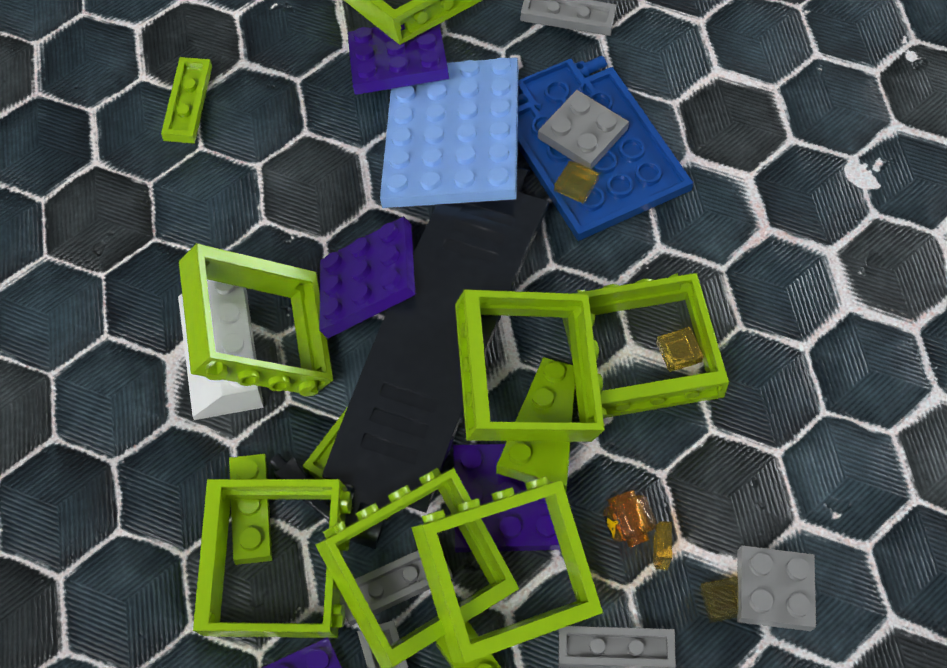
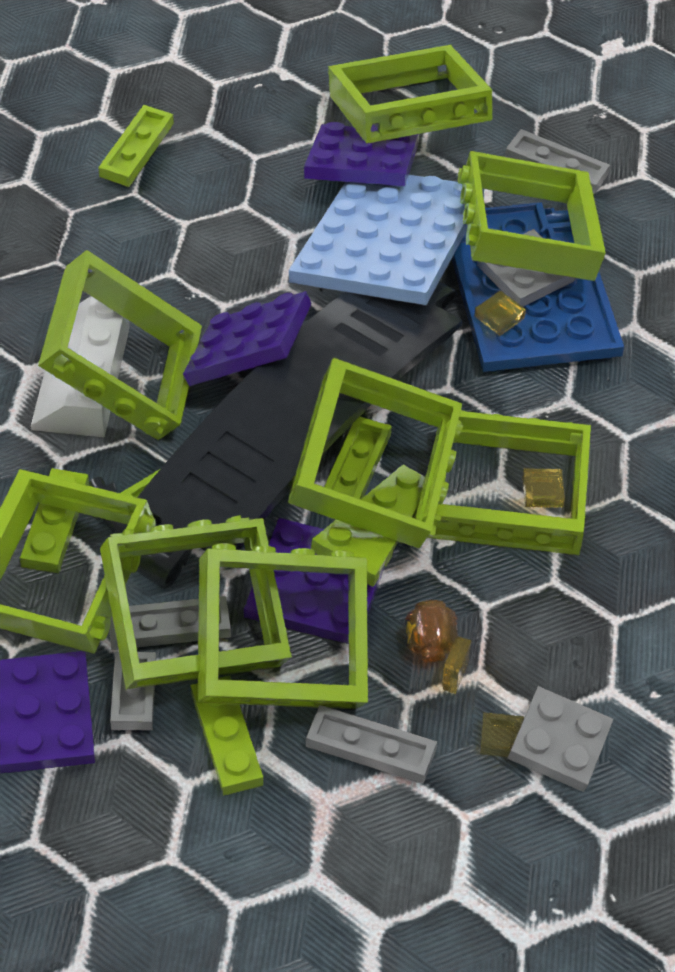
camera: 15 degrees right, 10 degrees down
(503, 372) = (359, 457): none -> lime plate
(570, 40) = (539, 181): none -> lime window

